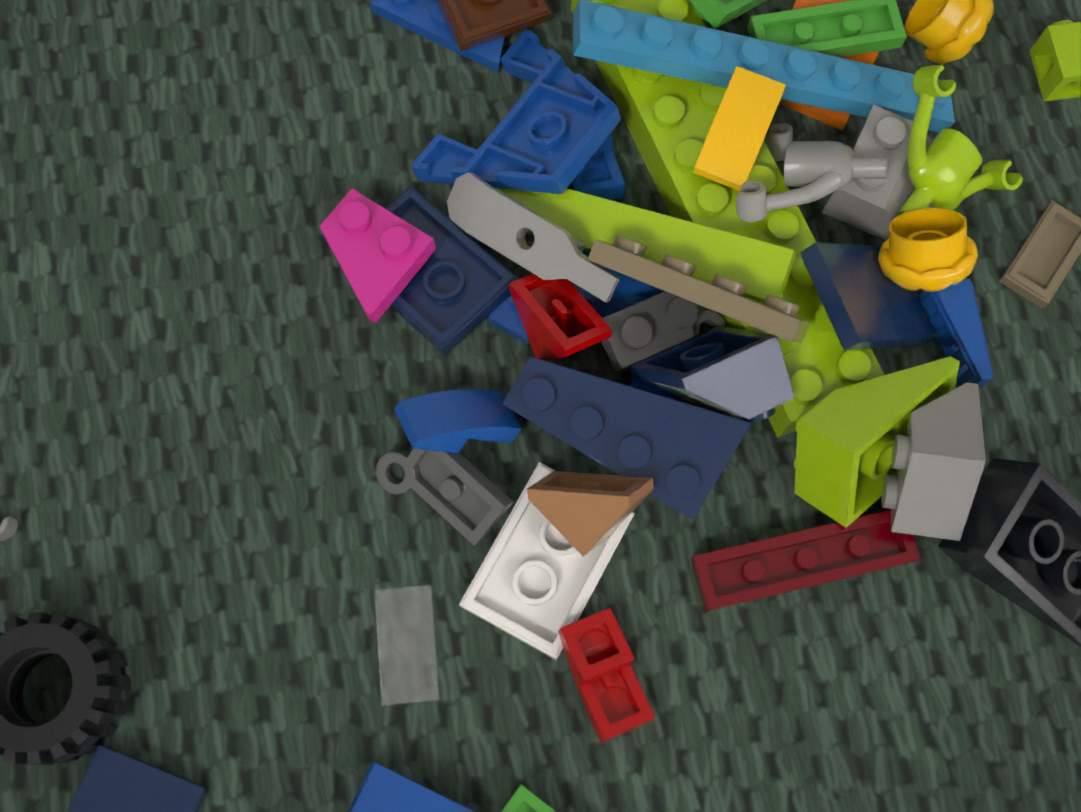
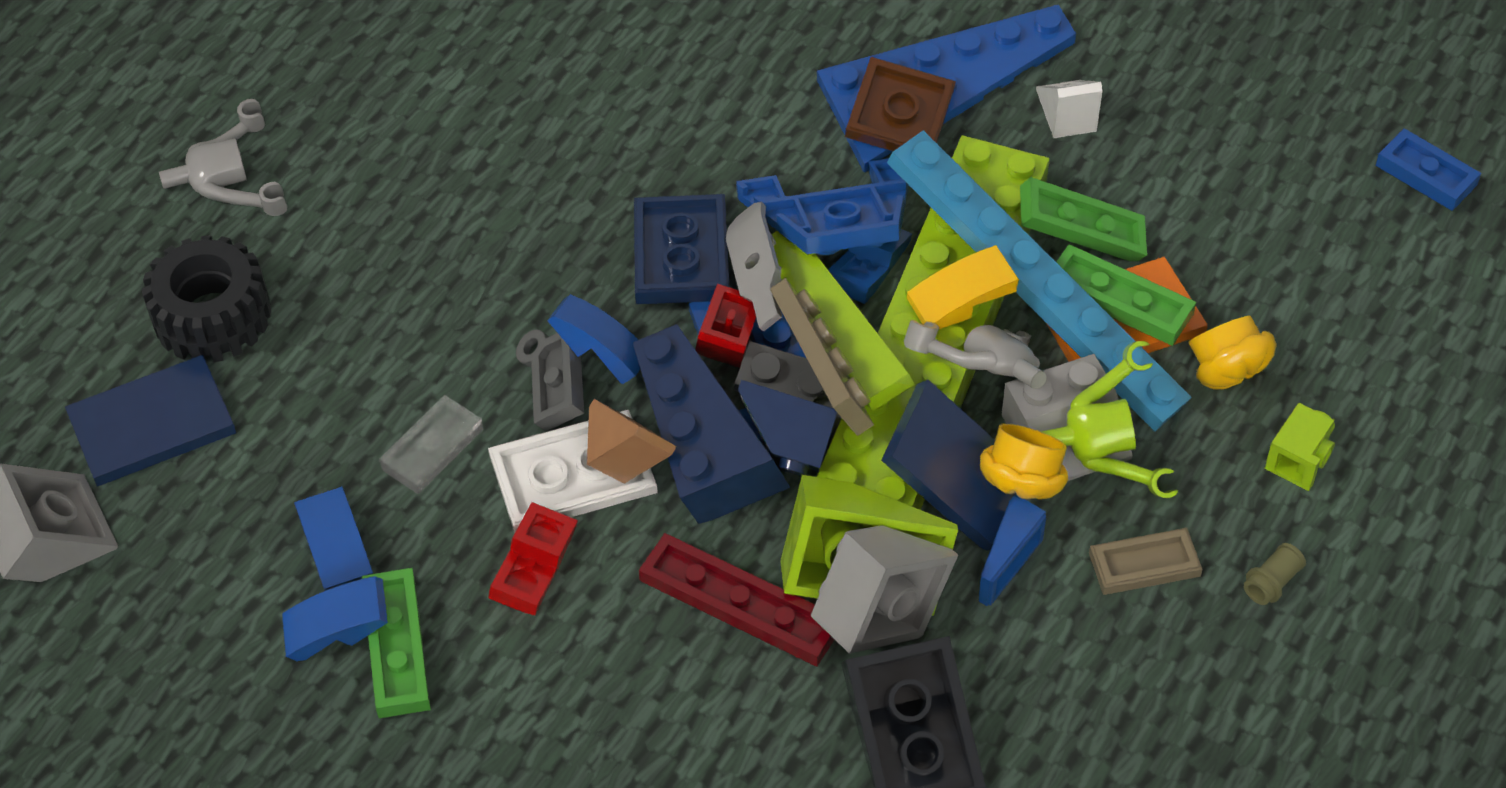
camera: 50 degrees right, 20 degrees down
(375, 250) = (653, 210): dark pink wing -> none

